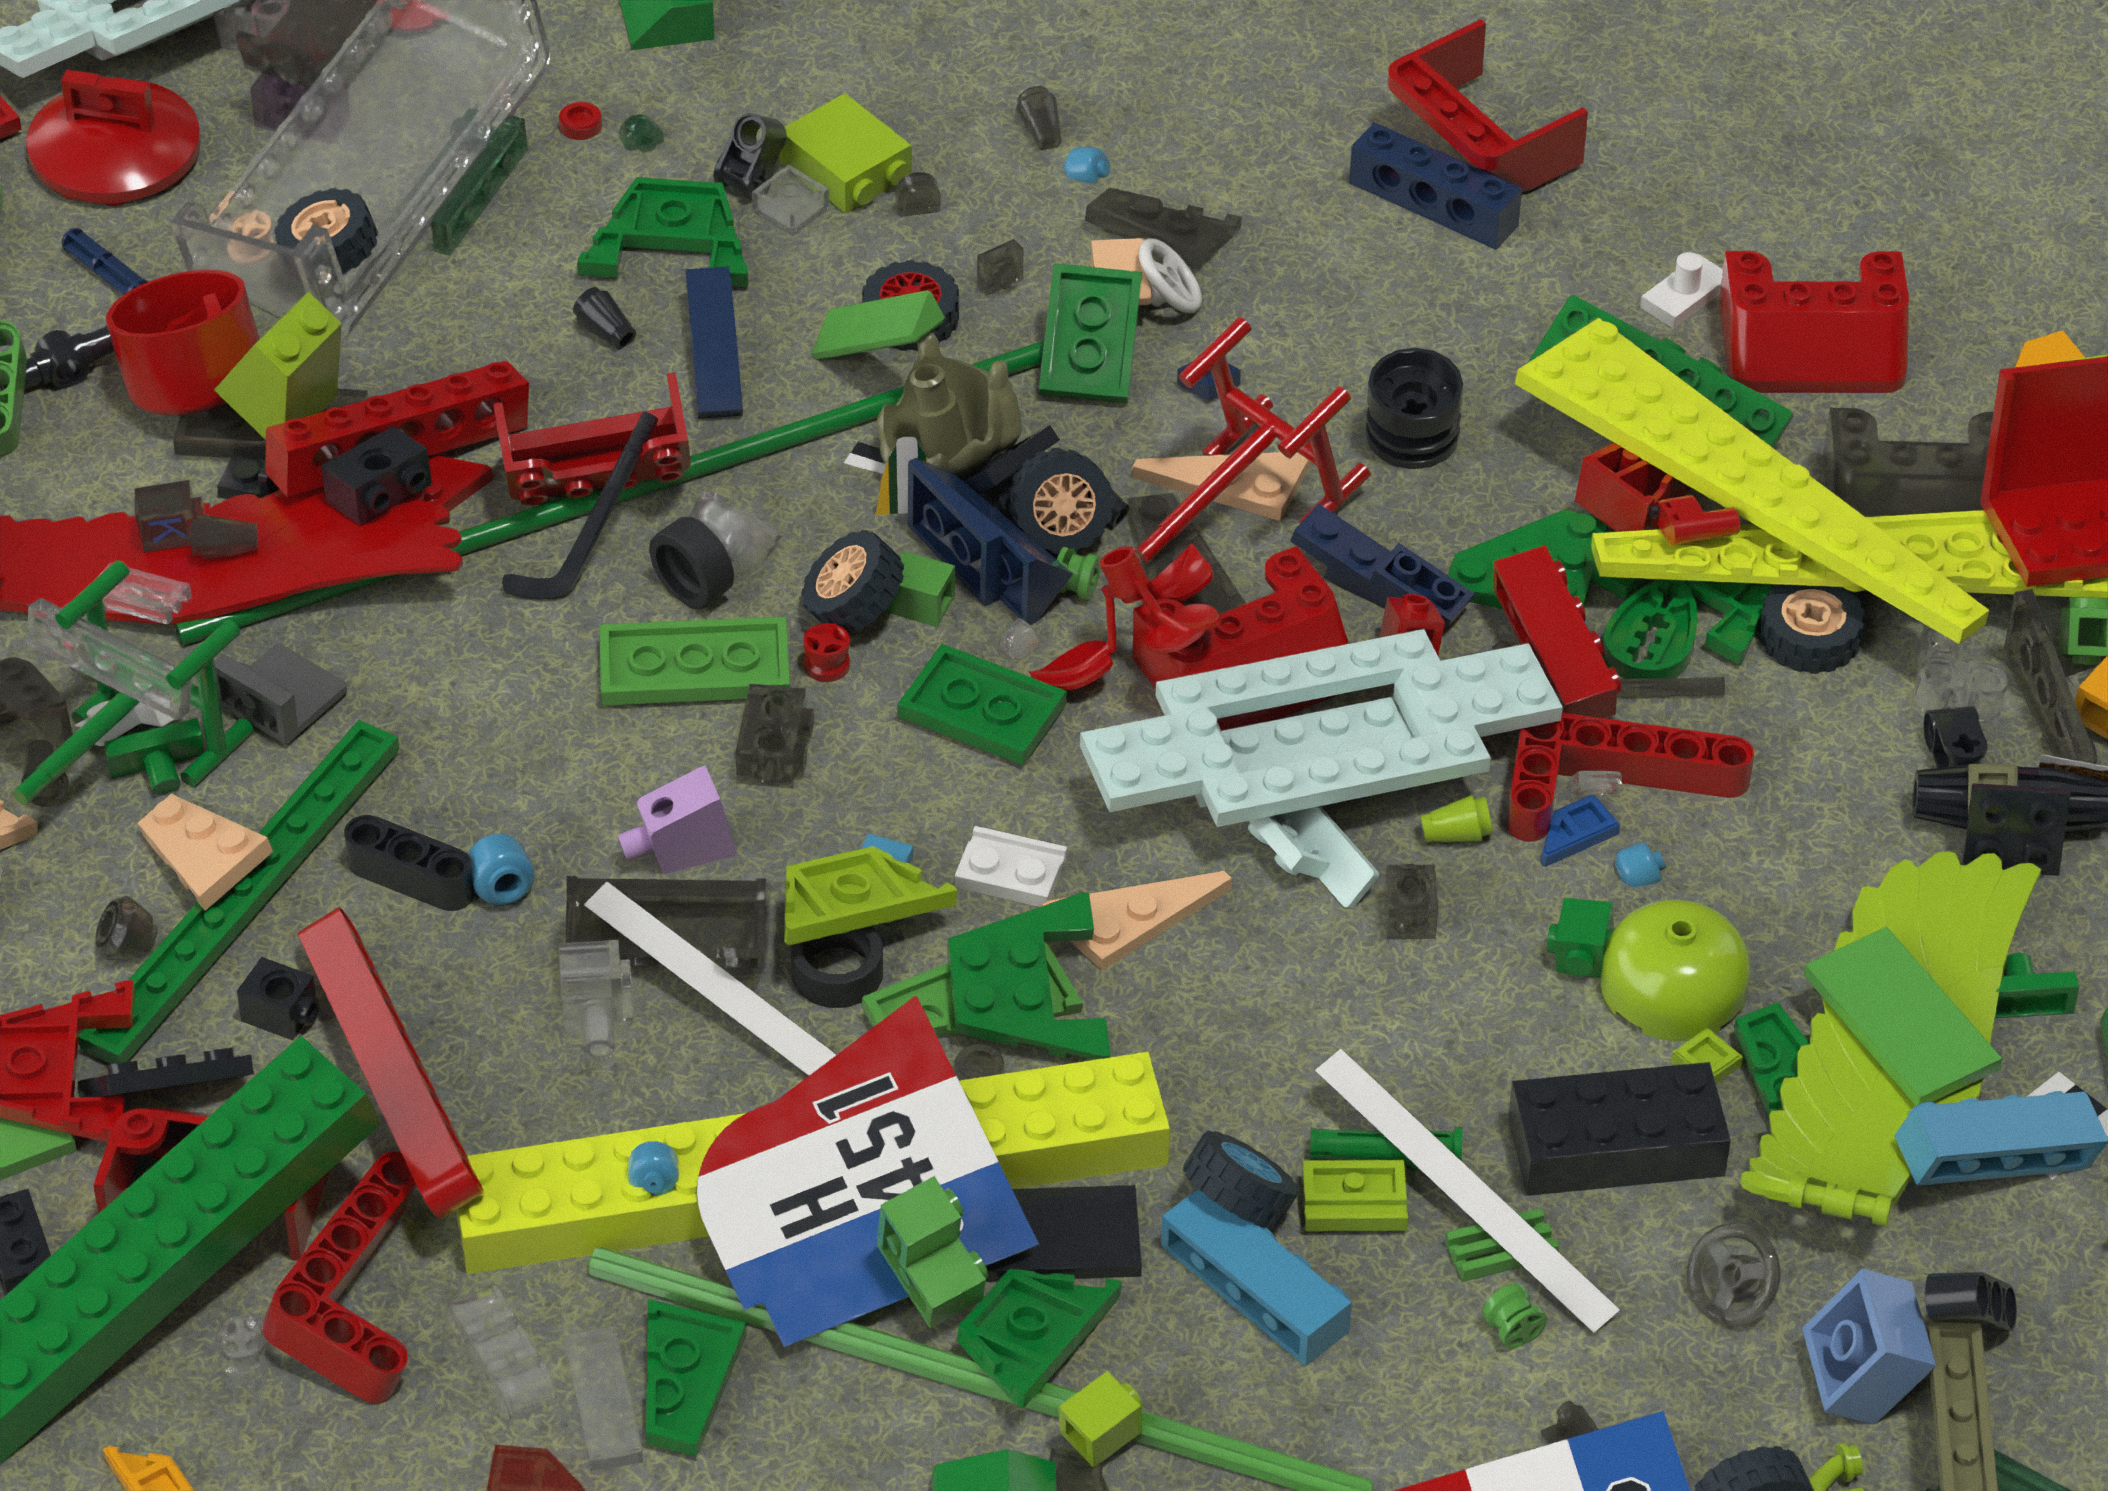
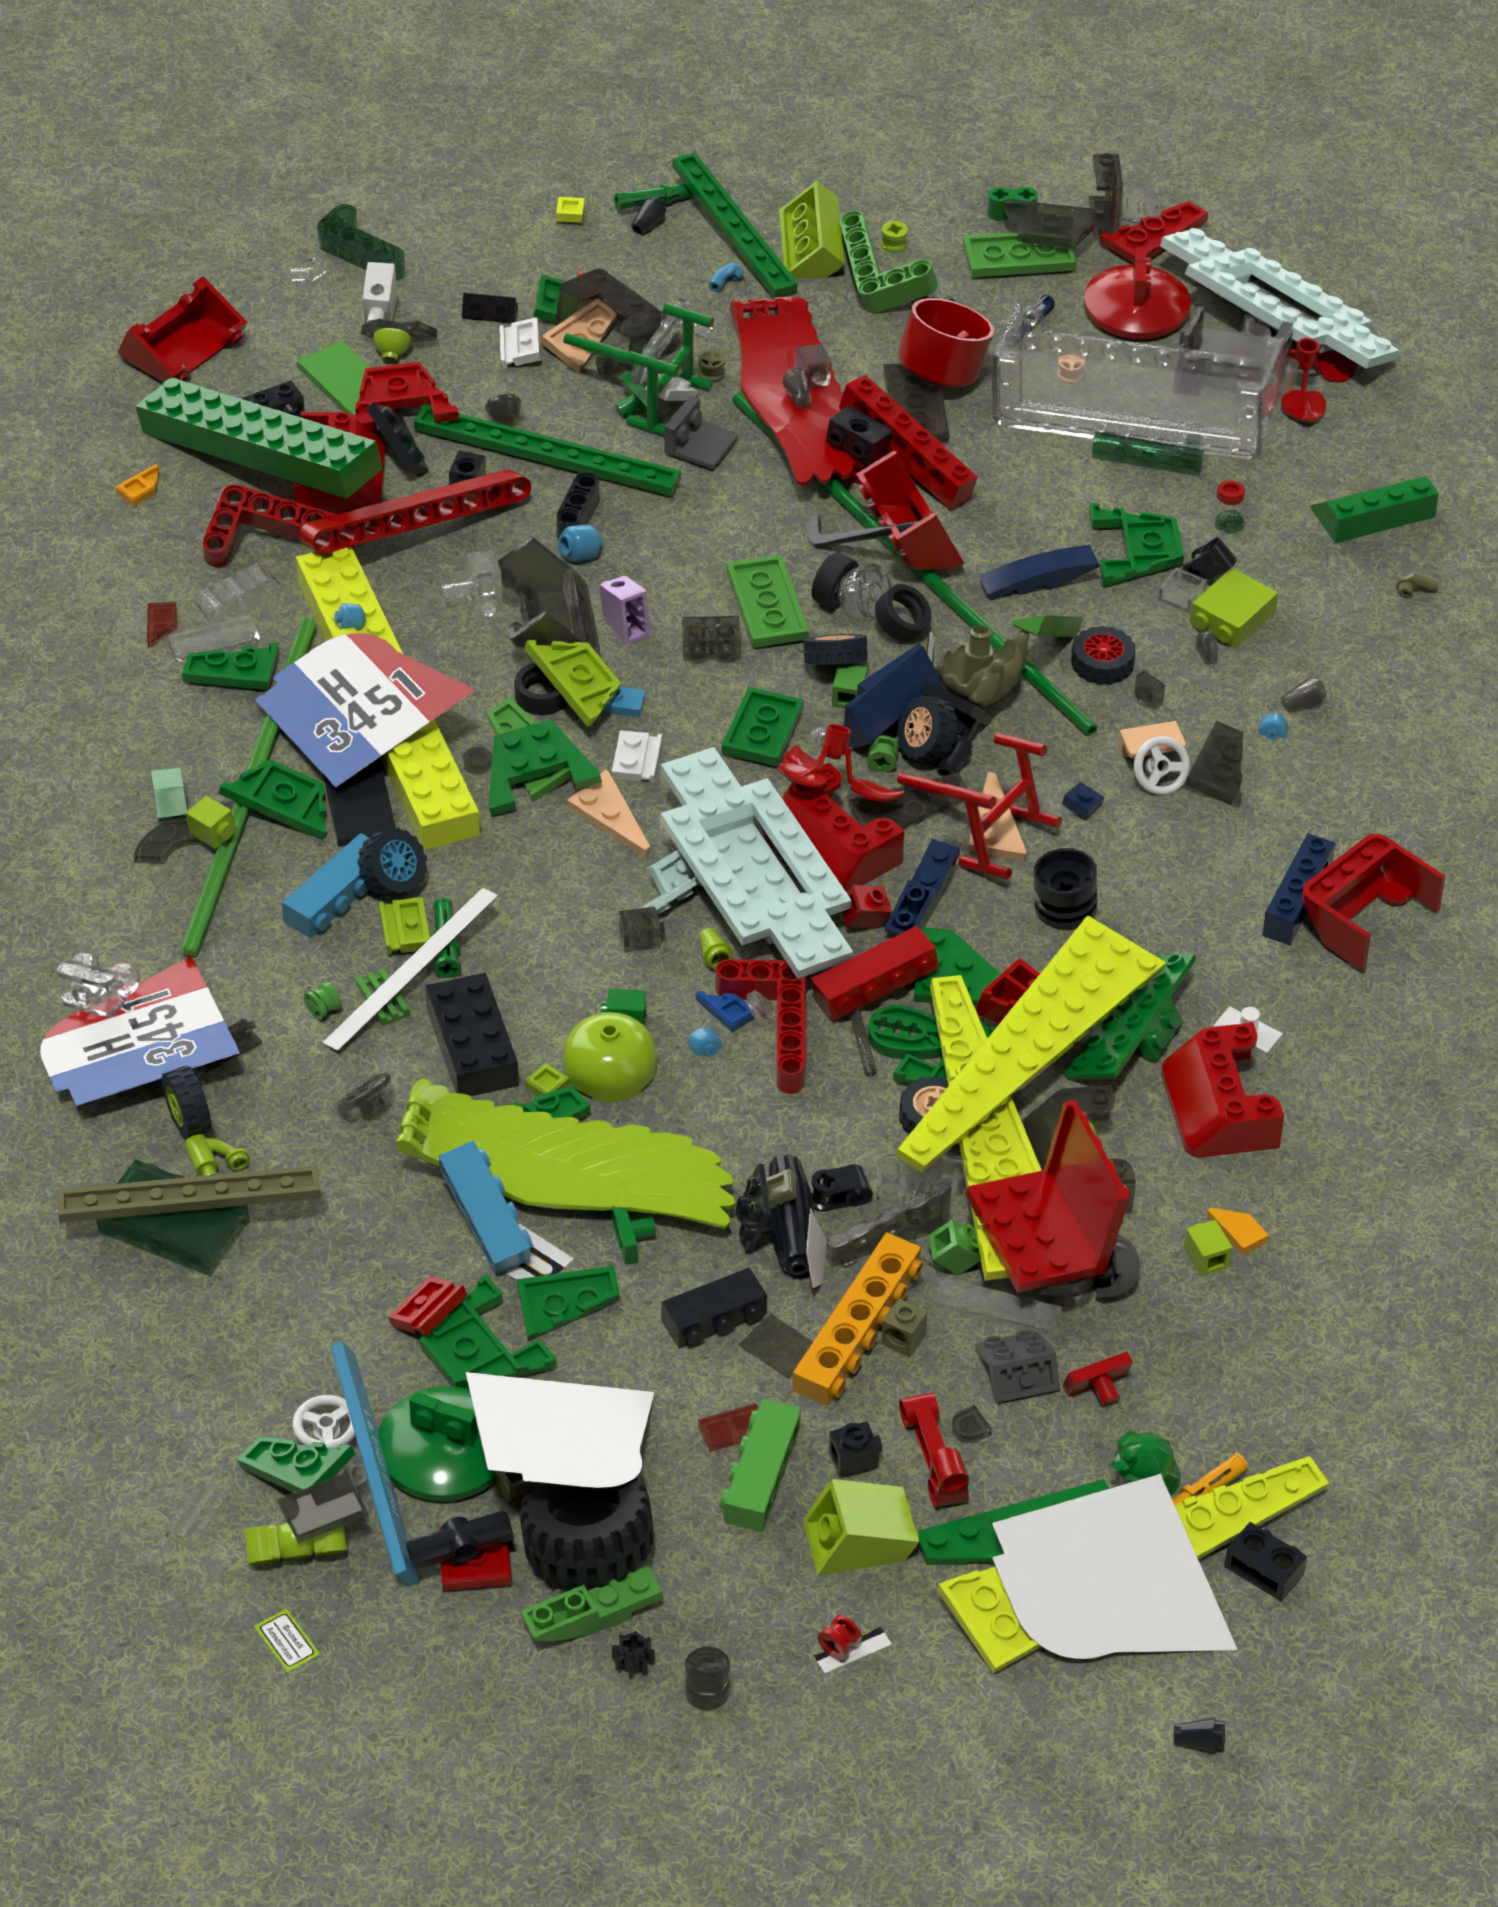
camera: 80 degrees right, 0 degrees up
(135, 600) = (750, 379): clear tile -> none
(203, 847) = (569, 426): light nougat wing -> none
(289, 369) = (917, 376): lime slope -> none
(341, 213) = (1059, 384): black wheel -> none
(603, 317) = (1048, 523): black cone -> none
(709, 979) = (500, 645): white sticker -> none
(781, 497) = (913, 601): none -> black tyre
(826, 652) = (787, 654): red wheel -> none
(924, 1251) = (307, 729): bright green brick -> none
(1090, 333) = (1089, 730): green plate -> none
(1685, 521) = (977, 1015): red piece -> none
(1868, 1346) = (307, 1145): medium blue brick -> none
(1902, 1017) = (574, 1154): bright green tile -> none
(1971, 1299) = (341, 1176): black beam -> none

